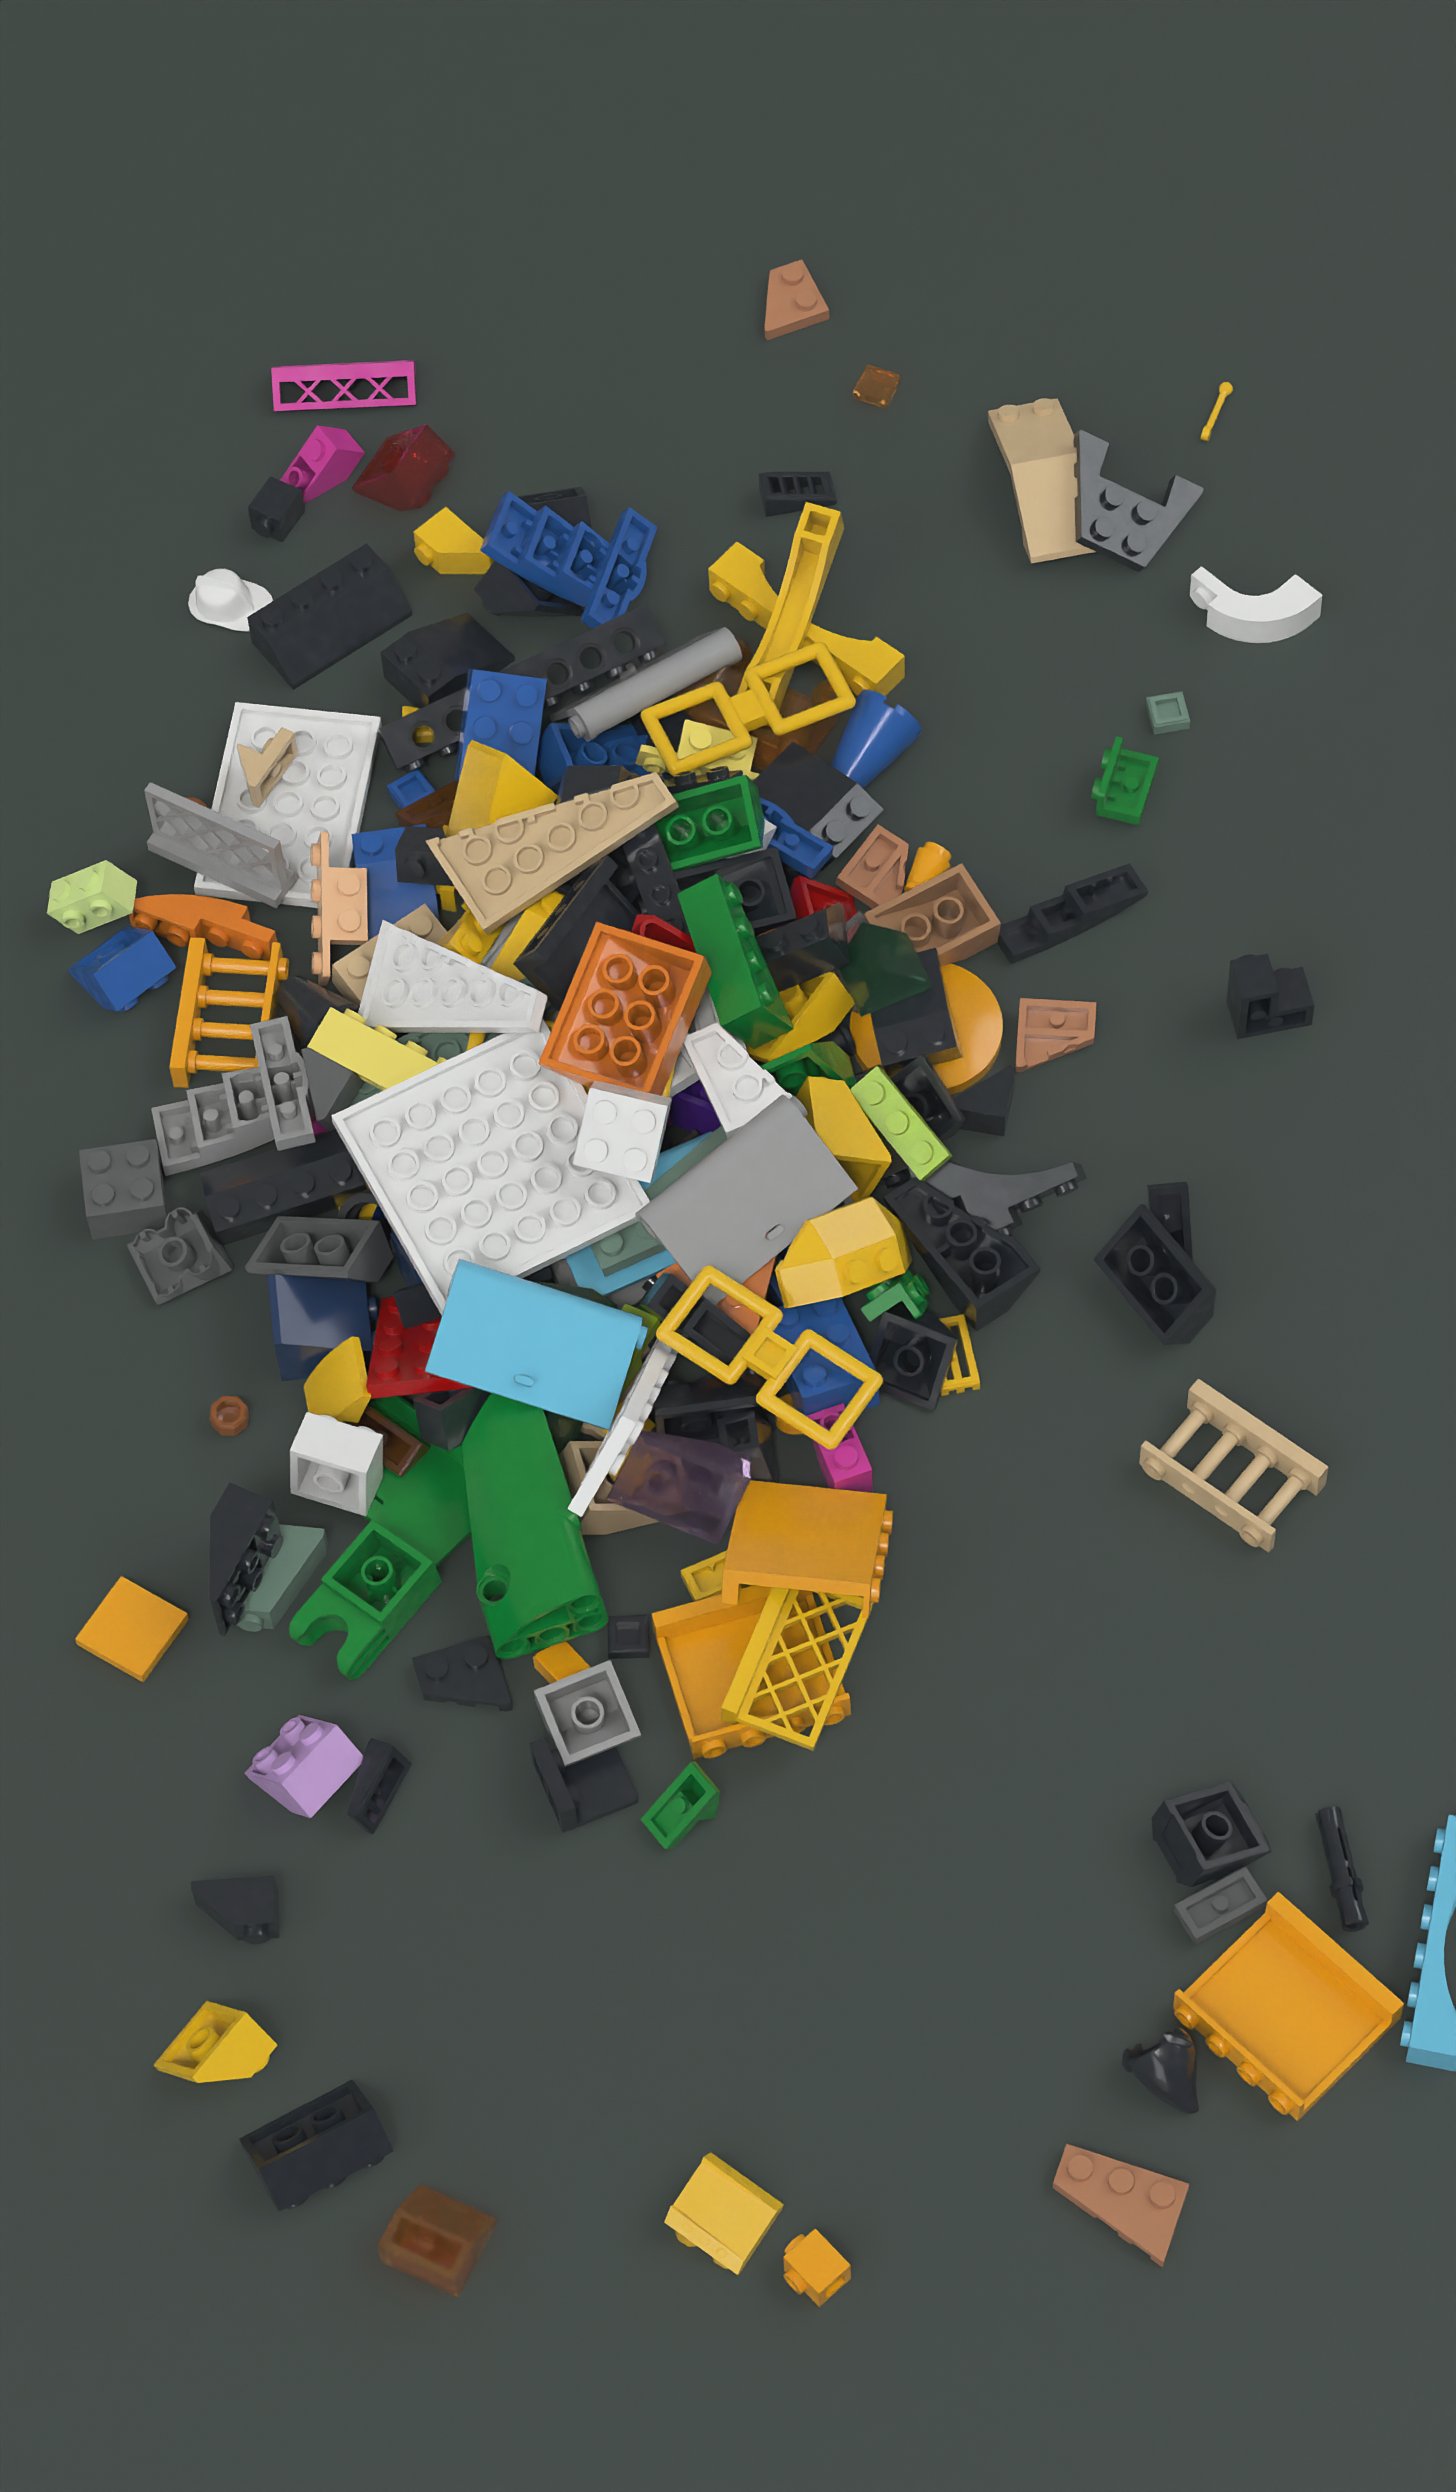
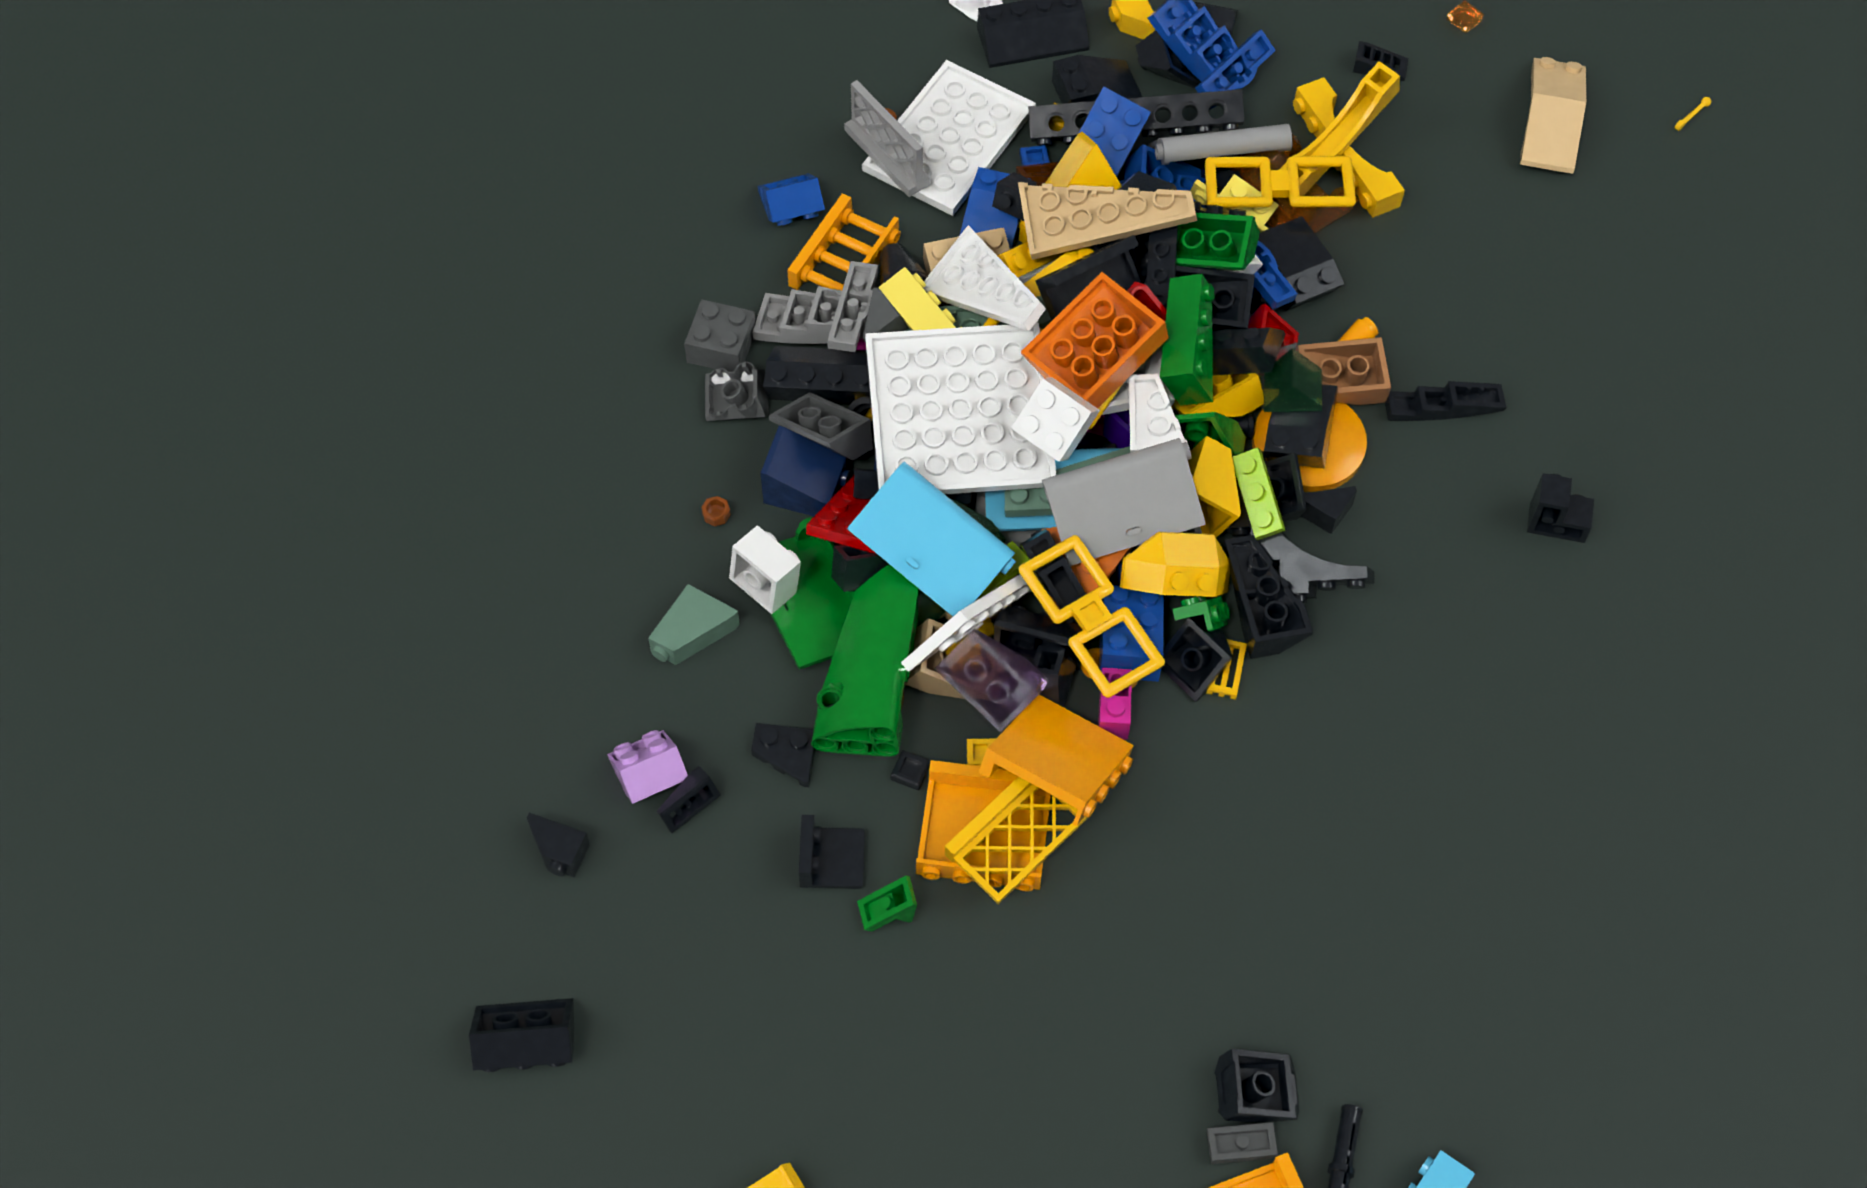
camera: 20 degrees right, 0 degrees up
(92, 897) = (791, 144): yellowish green brick -> none
(132, 1629) = (582, 626): light orange tile -> none
(194, 916) = (856, 183): orange slope -> none
(217, 2046) = (490, 936): yellow slope -> none
(241, 1542) = (667, 600): black slope -> none
(266, 769) = (945, 106): tan slope -> none
(339, 1383) = (792, 518): yellow slope -> none
(340, 905) = (950, 210): light nougat bracket -> none
(369, 1596) = (745, 667): green brick -> none
(400, 1446) = (814, 572): reddish brown slope -> none
(435, 2239) = (570, 1138): clear orange slope -> none
(559, 1662) = (855, 770): light orange slope -> none
(586, 1713) = (853, 811): light grey slope -> none
(873, 737) = (1359, 235): blue cone -> none
(876, 869) = (1322, 321): nougat wing -> none
(1052, 1030) = (1396, 475): nougat wing -> none
(1117, 519) = (1594, 157): wing -> none
(1125, 783) = (1521, 330): green bracket -> none
(1158, 1278) = (1394, 673): black slope -> none
(1168, 712) = (1573, 296): sand green tile -> none
(1171, 1207) = (1421, 638): black slope -> none
(1238, 1429) = (1407, 802): tan fence -> none
(1256, 617) = (1662, 255): white arch -> none

